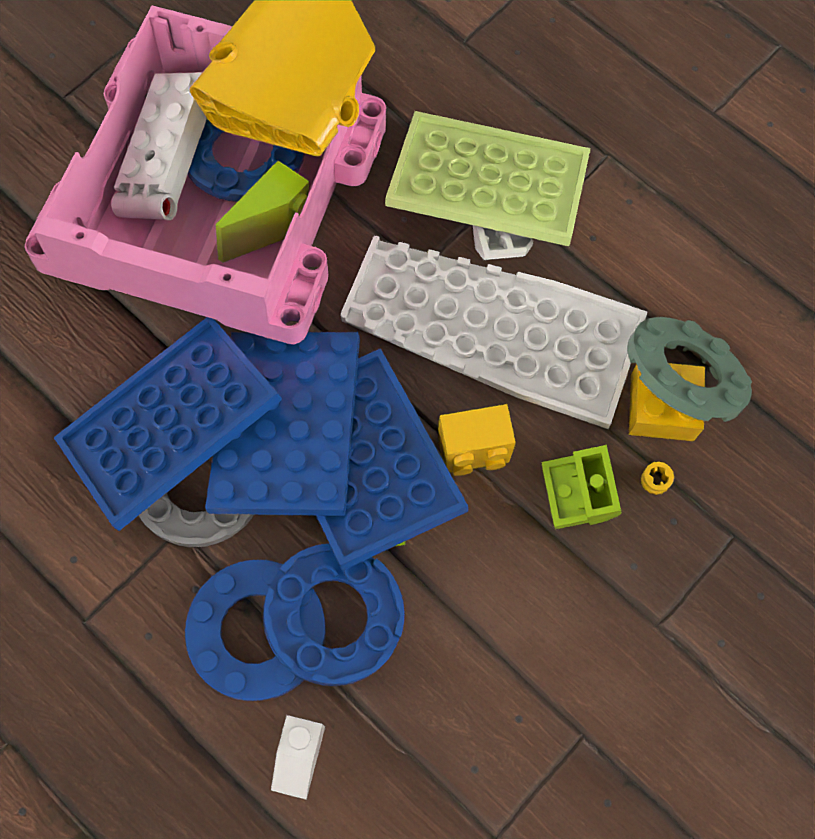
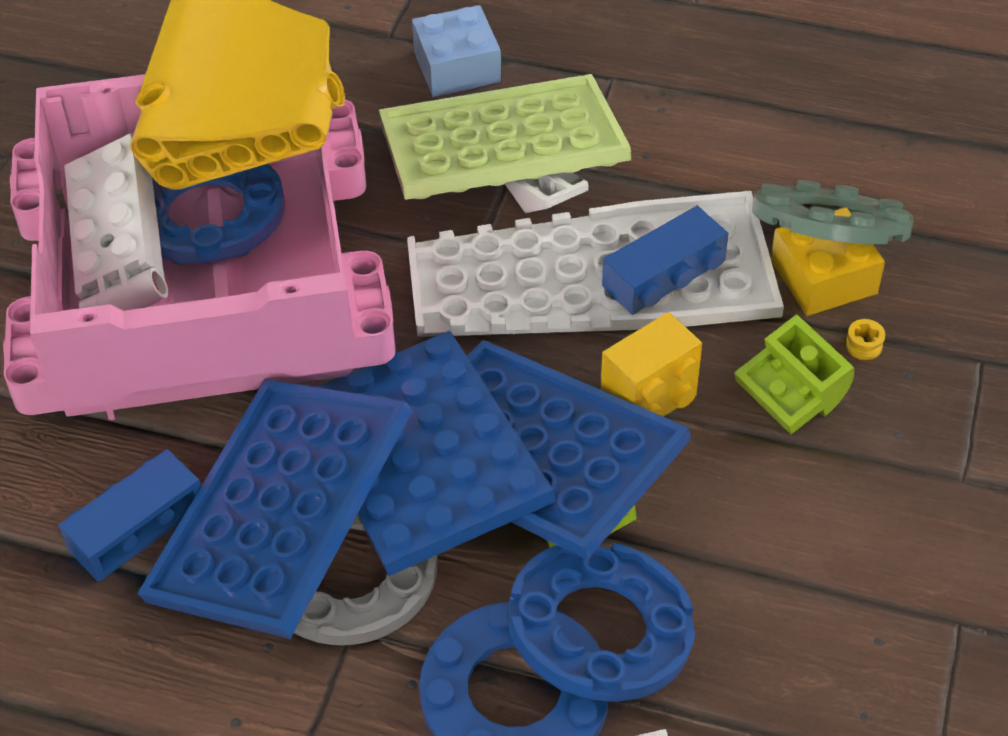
camera: 25 degrees left, 20 degrees down
(77, 375) = (130, 515): none -> blue brick
(262, 213) = (281, 237): lime slope -> none
(500, 81) = (456, 51): none -> light blue brick
(542, 348) = (664, 260): none -> blue brick

